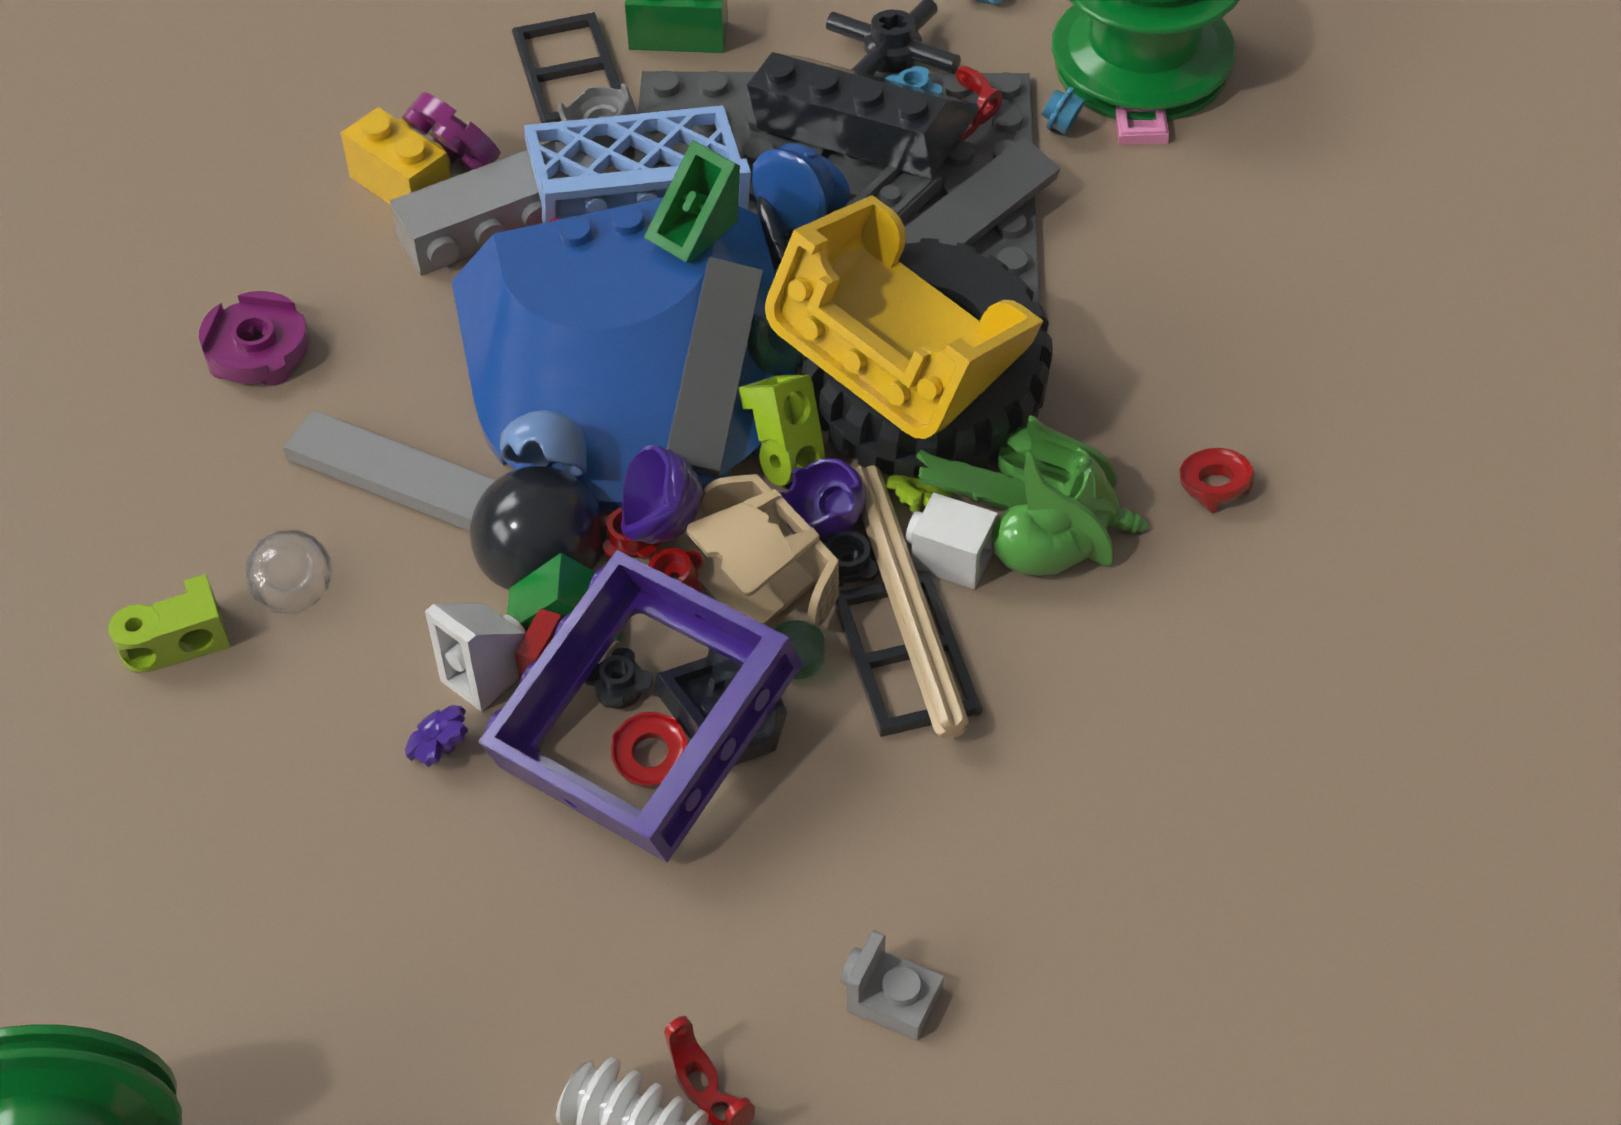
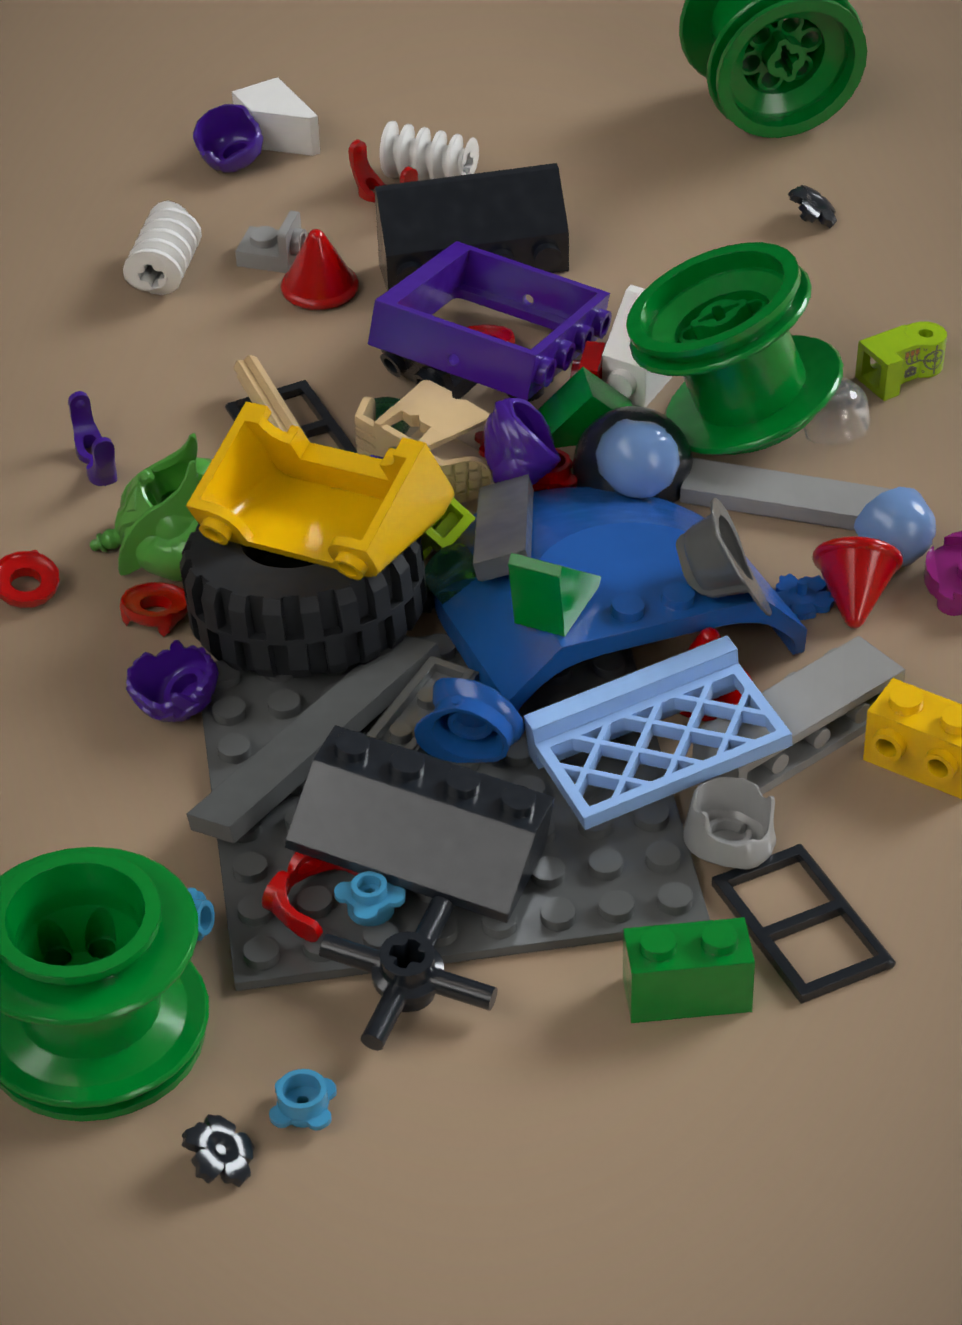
camera: 170 degrees right, 10 degrees down
(133, 929) = (813, 205): none -> black plant
(311, 367) = (901, 520): none -> medium blue hair
(368, 341) = (856, 573): none -> red hat
(401, 477) = (727, 332): none -> green wheel
(433, 356) = (805, 595): none -> blue plant
(460, 140) = (905, 740): magenta plate -> none
(526, 218) = (715, 558): none -> dark grey piece
(616, 909) = (500, 211): none -> black slope
(834, 910) = (319, 276): none -> red hat
(1044, 968) = (163, 249): none -> white piece
(1072, 308) = (173, 682): none -> dark purple hair
(1084, 407) = (154, 594): none -> red piece
(1133, 614) = (101, 463): none -> dark purple cap

